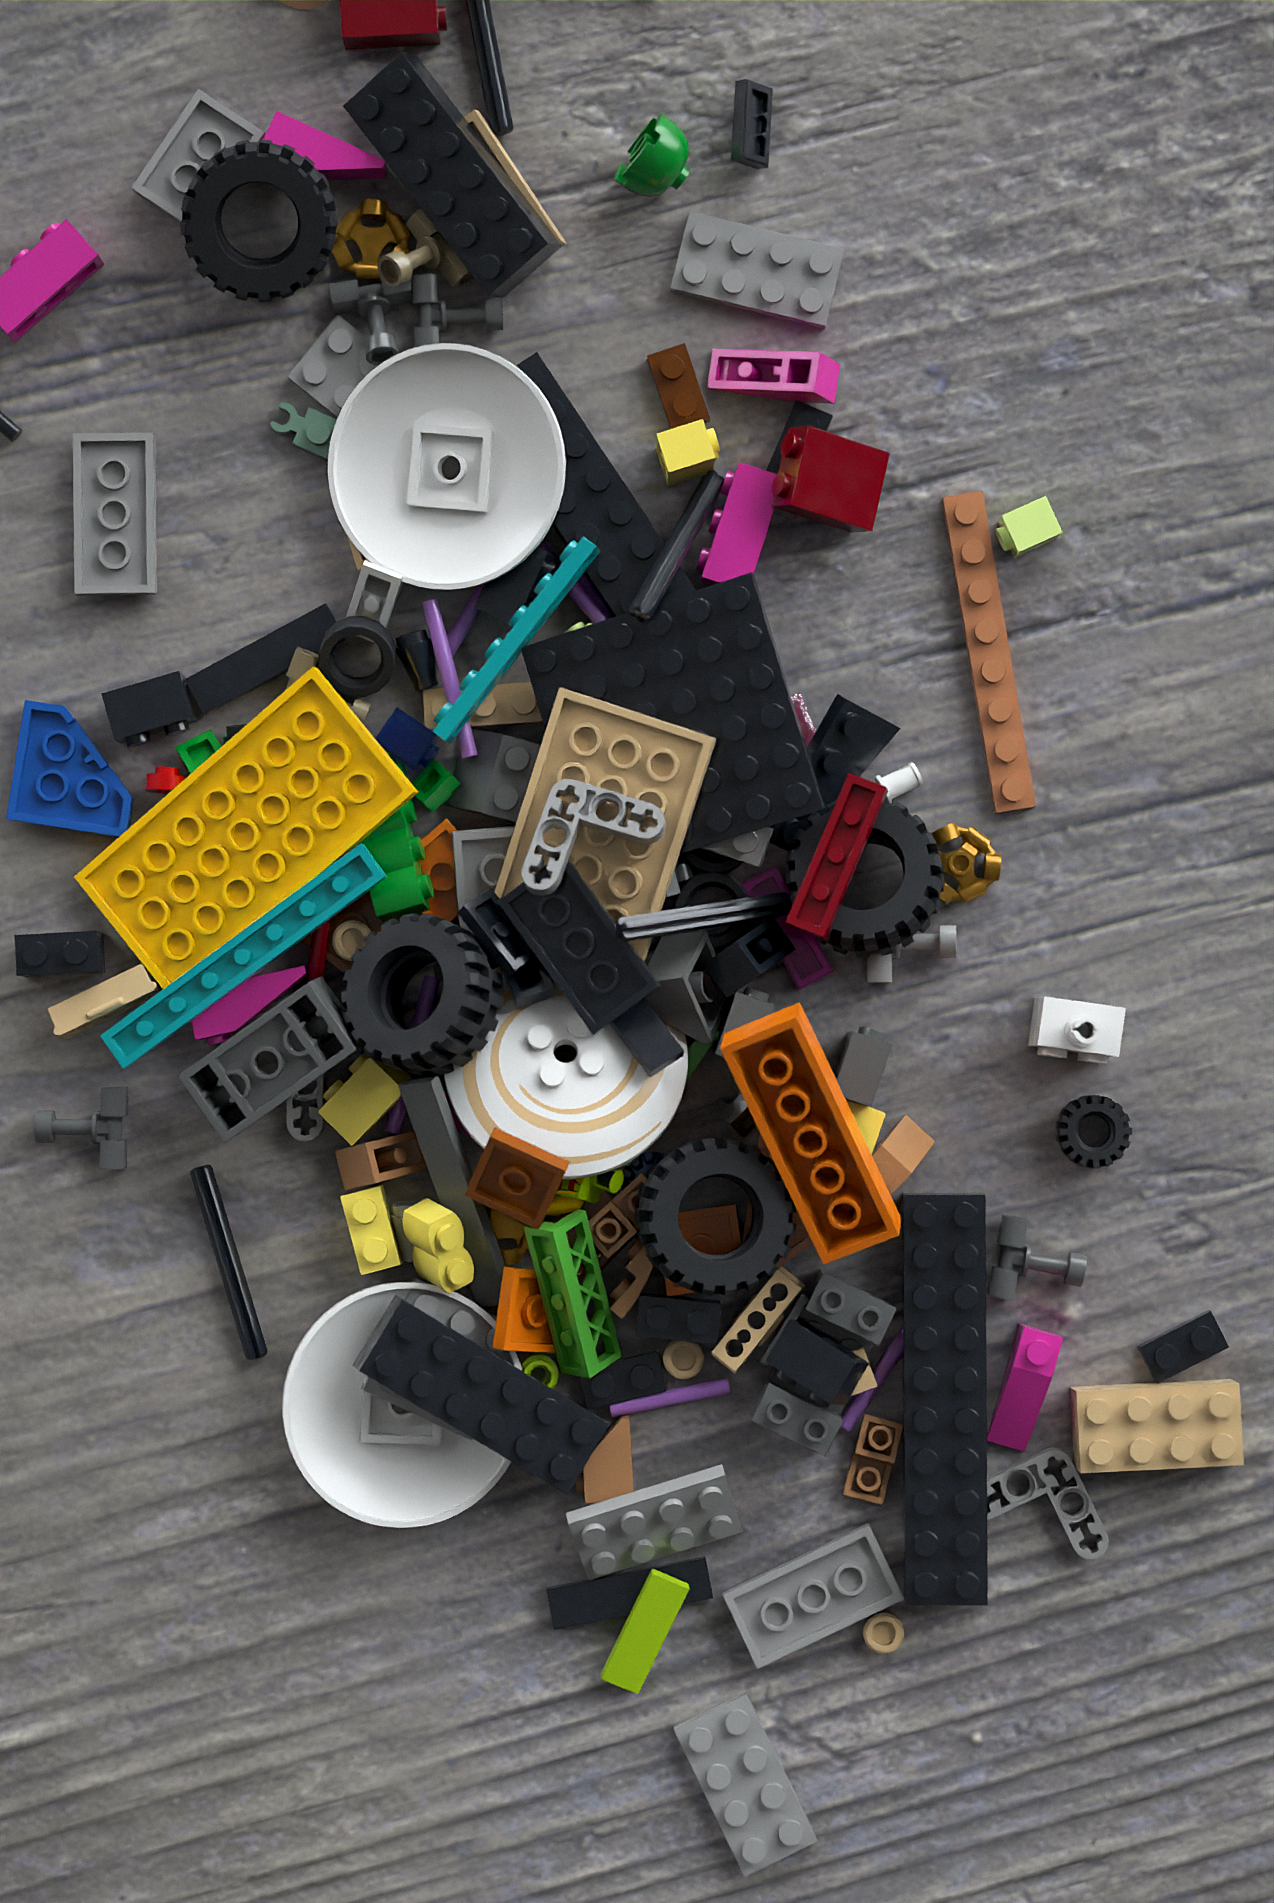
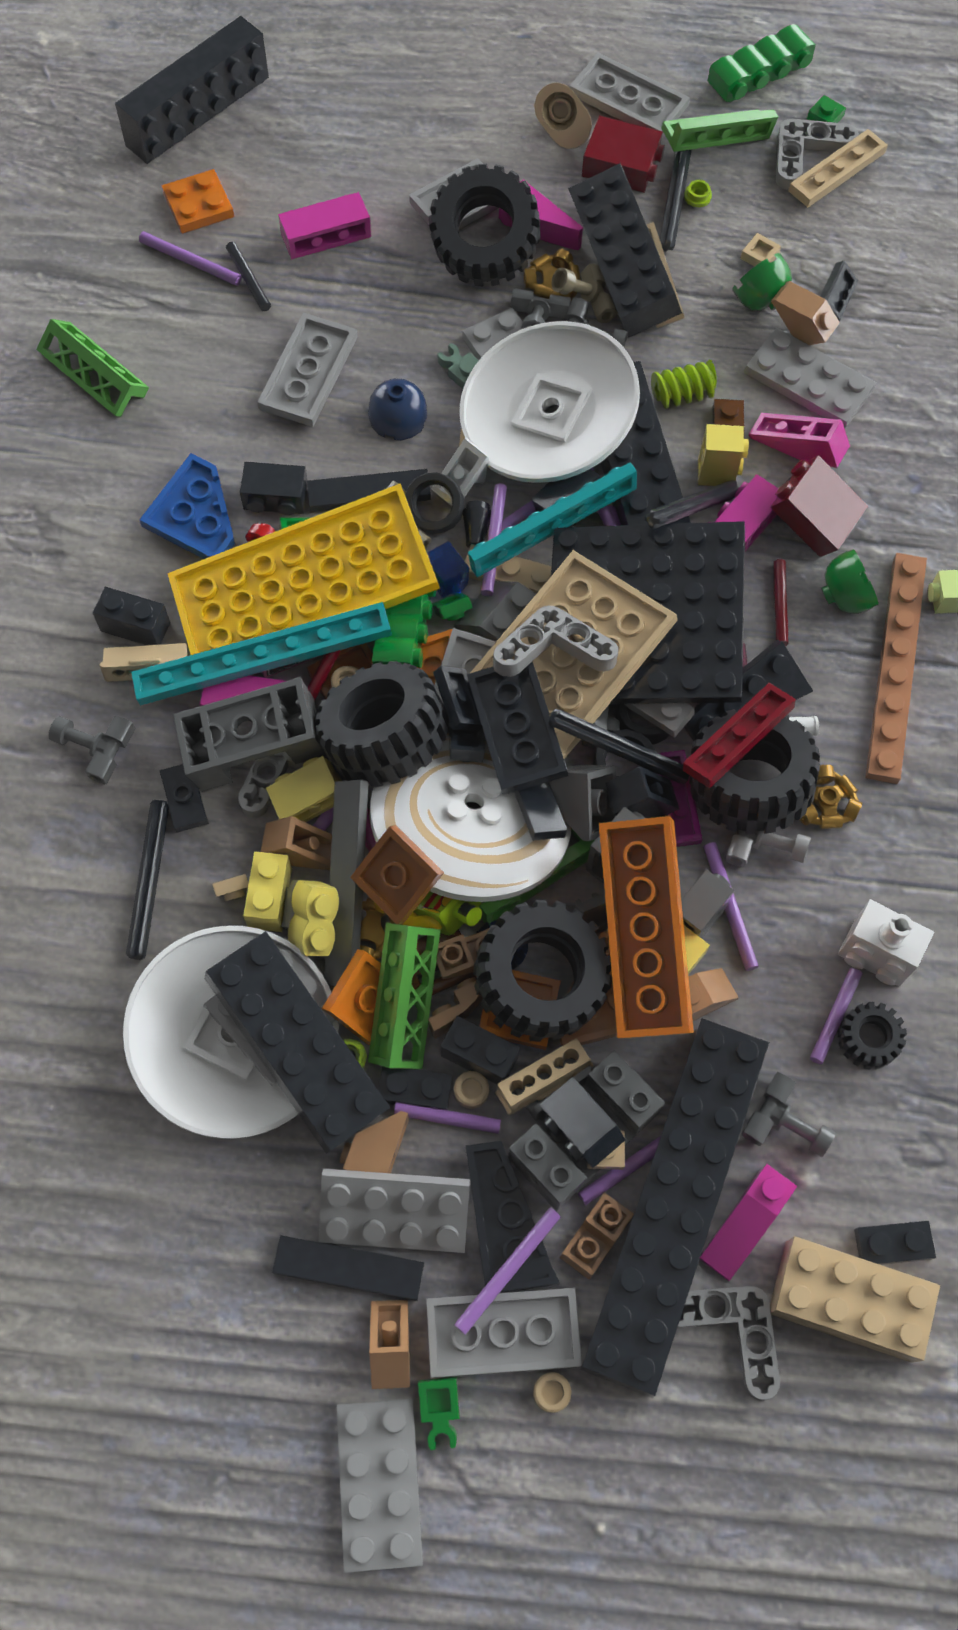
camera: 25 degrees right, 20 degrees down
(230, 1160) = (183, 799): none -> black plate
(253, 530) = (397, 409): none -> dark blue cylinder
(328, 1238) = (232, 887): none -> tan plate
(511, 15) = (698, 193): none -> lime plate
(603, 352) = (684, 383): none -> lime piece
(630, 95) = (759, 249): none -> tan plate
(645, 1631) = (347, 1304): lime tile -> none
(703, 1652) = (389, 1344): none -> medium nougat slope
(722, 189) = (805, 314): none -> medium nougat slope
(777, 1690) = (439, 1405): none -> green plate
(779, 1495) = (503, 1218): none -> black wing
(795, 1536) = (507, 1271): none -> medium lavender bar
(824, 619) = (780, 599): none -> dark red bar
(899, 1047) = (732, 911): none -> medium lavender bar
(900, 572) = (848, 584): none -> green cylinder
(1047, 1120) = (835, 1016): none -> medium lavender bar

